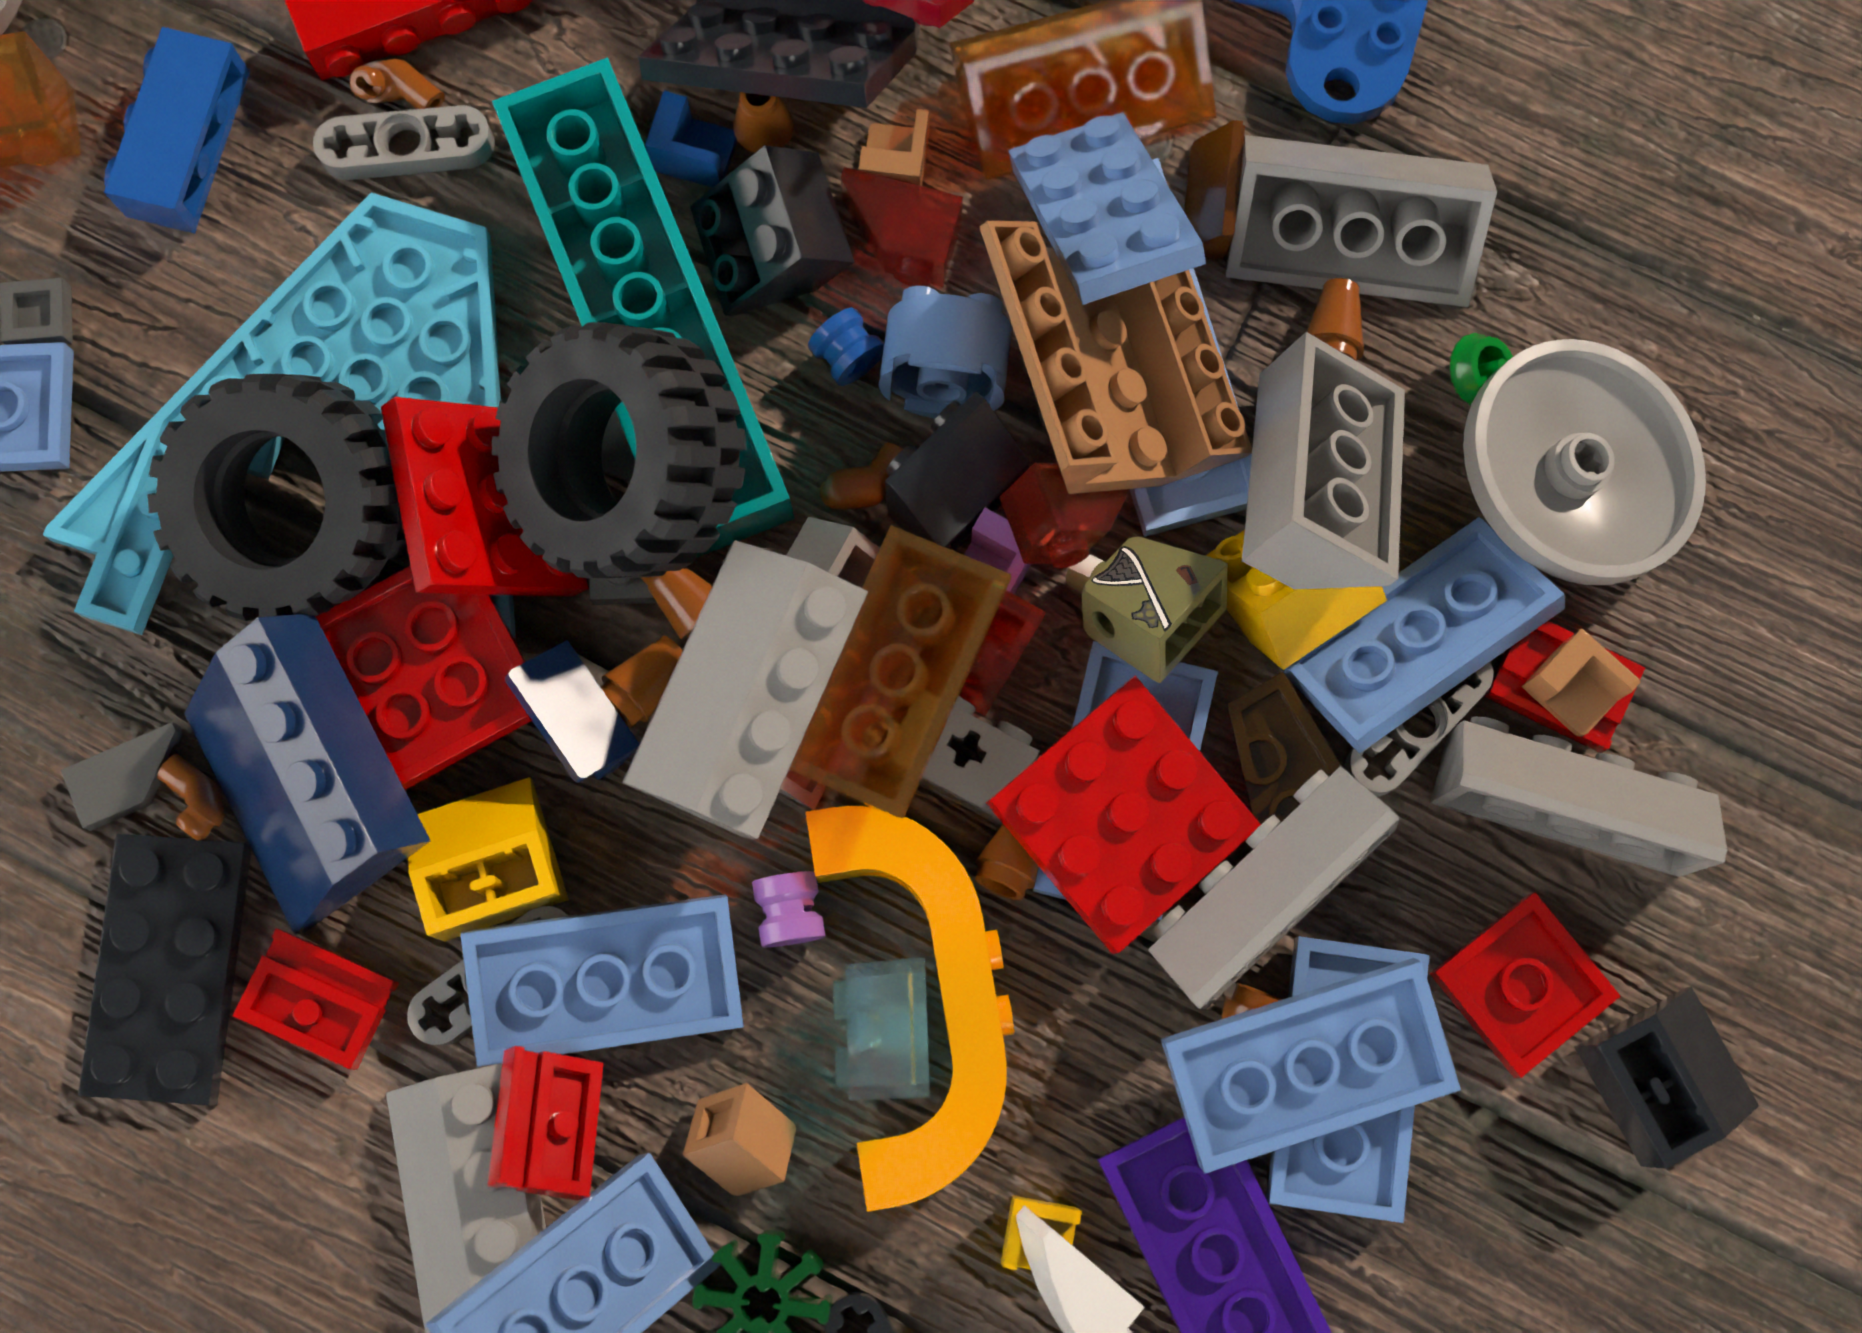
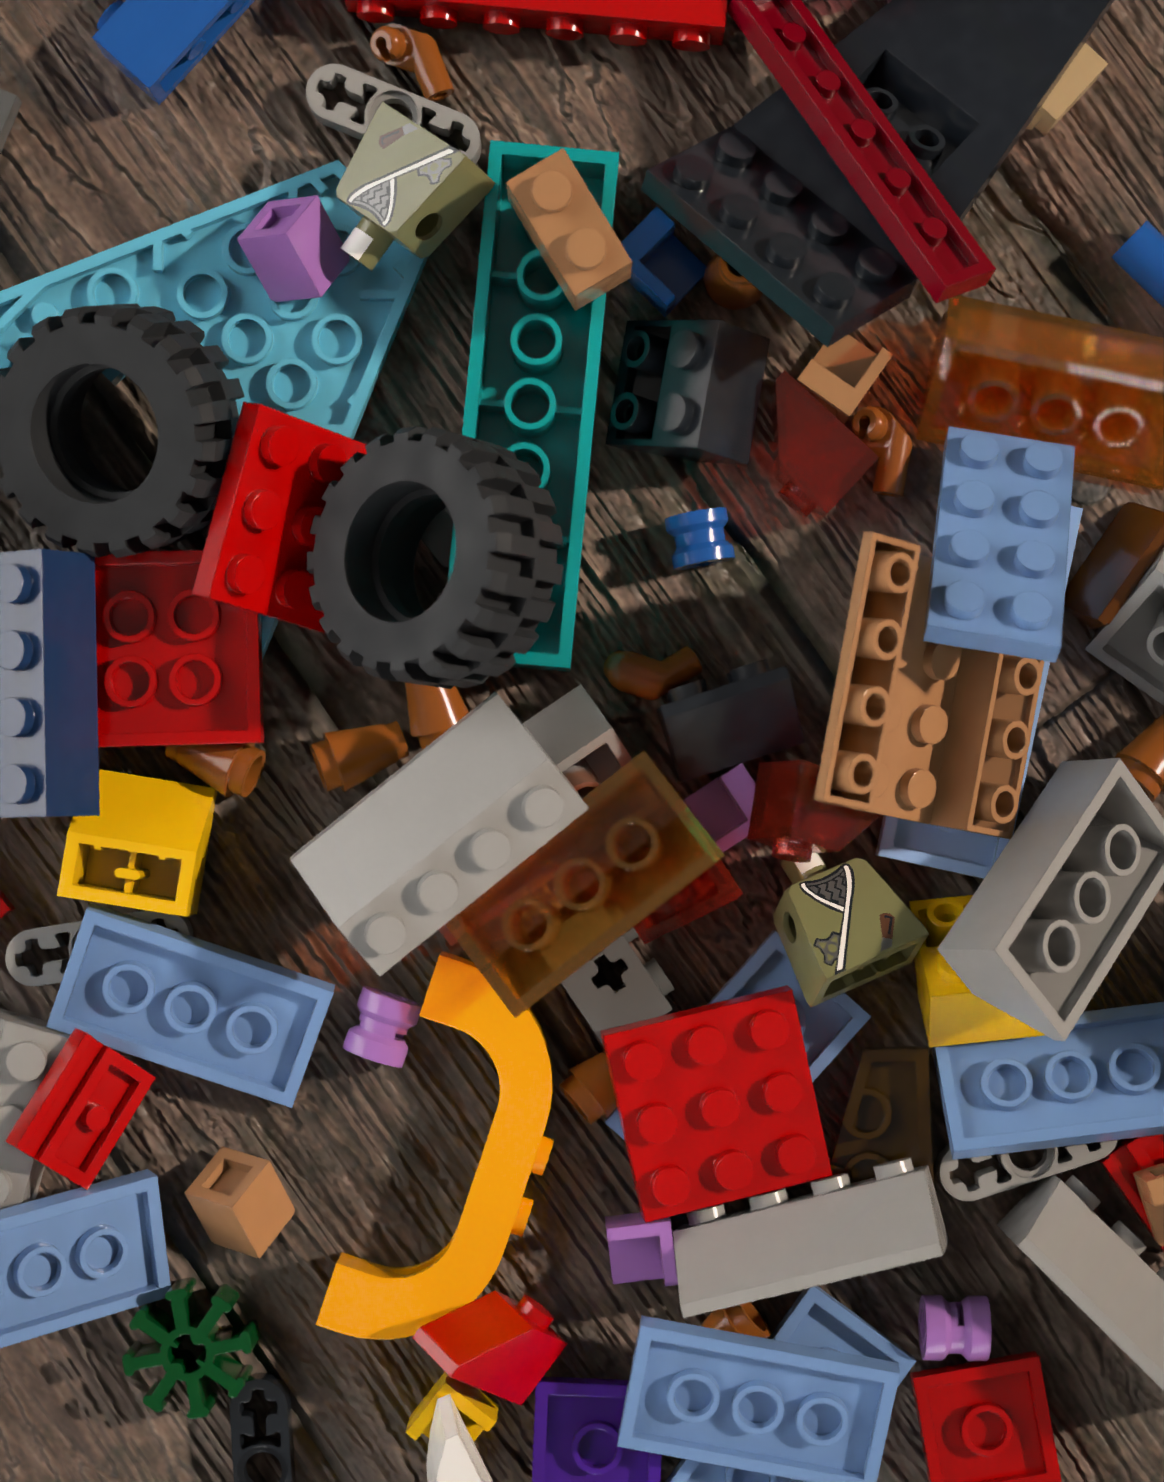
camera: 25 degrees right, 10 degrees up
(367, 276) = (294, 249): none -> medium lavender panel
(440, 173) = (406, 188): none -> torso
(516, 755) = (223, 766): none -> dark orange cone
(572, 713) = (279, 758): panel -> none
(595, 128) = (569, 229): none -> medium nougat brick
(884, 1030) = (411, 1182): clear light blue slope -> none
(945, 350) = (783, 598): medium blue brick -> none
(976, 196) = (890, 443): none -> dark orange arm
(1043, 1139) = (494, 1344): none -> red slope
(1129, 986) = (640, 1249): none -> medium lavender panel
(1446, 908) = (954, 1327): none -> medium lavender wheel

